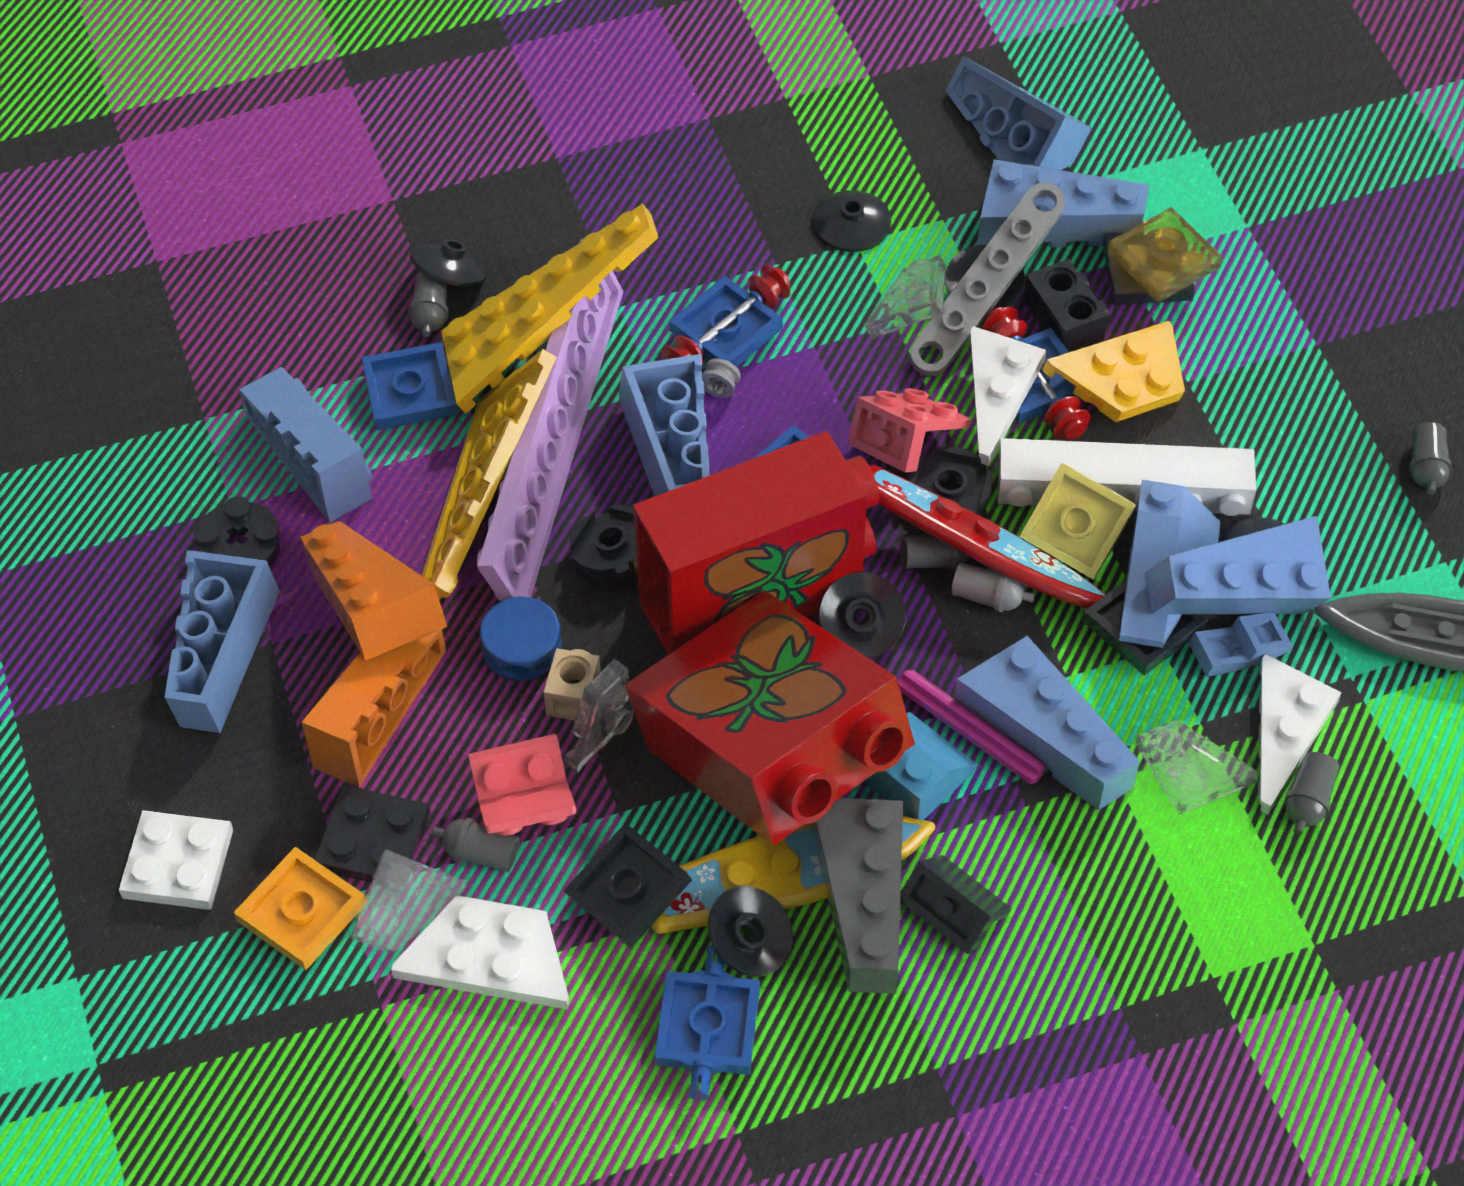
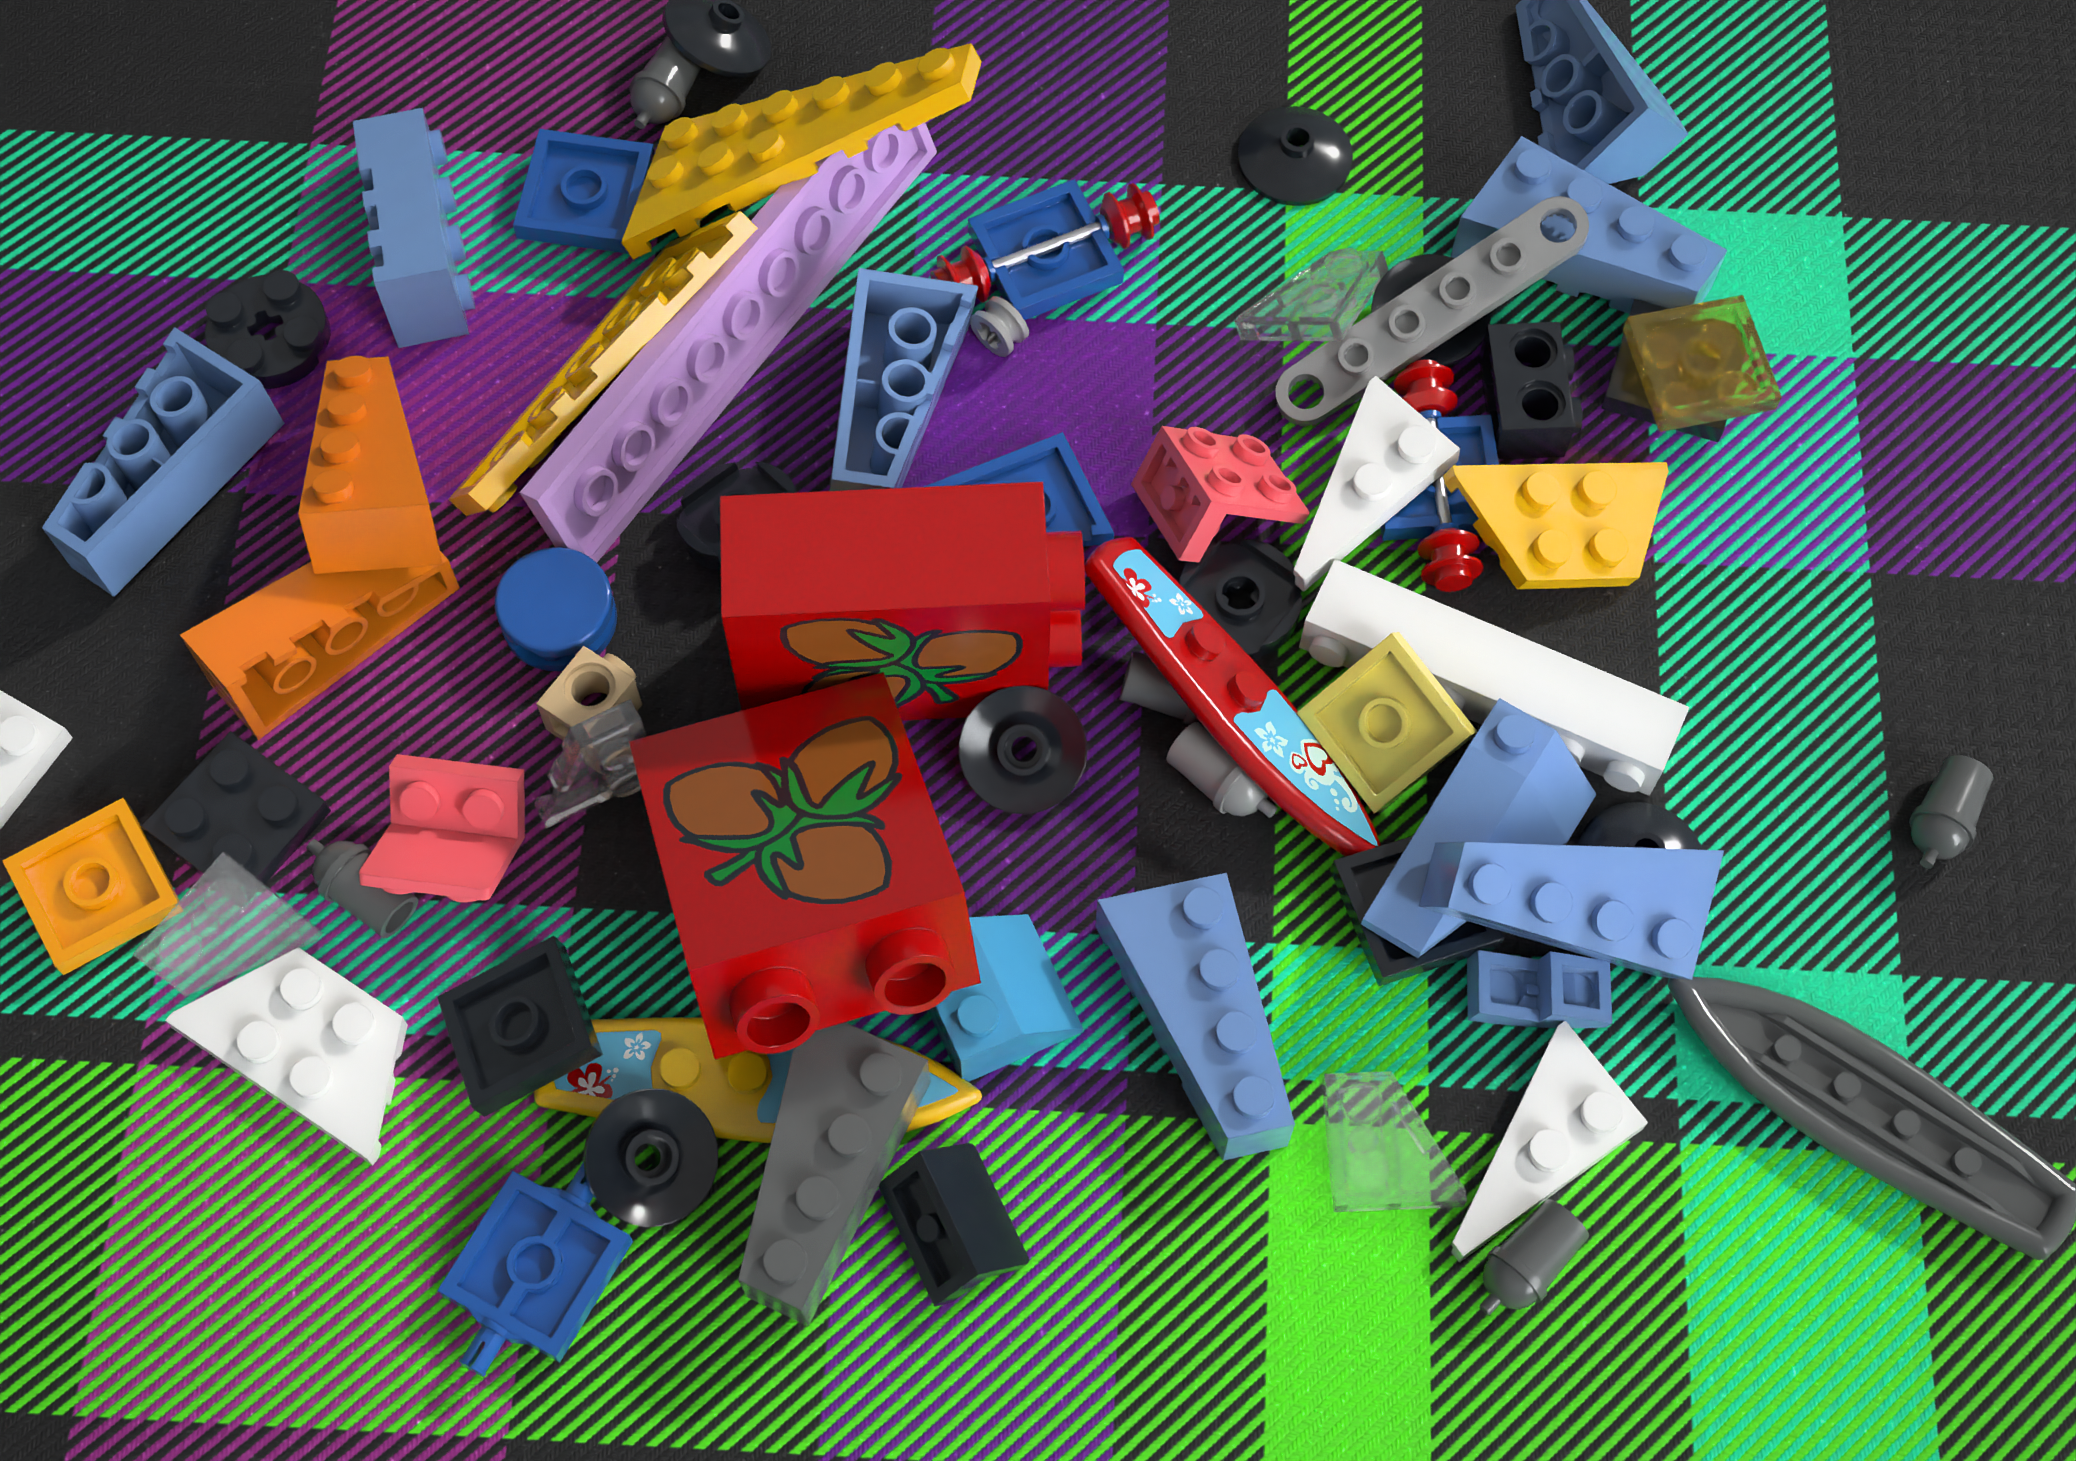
camera: 20 degrees right, 10 degrees up
(971, 727) = (1100, 970): dark pink axle -> none

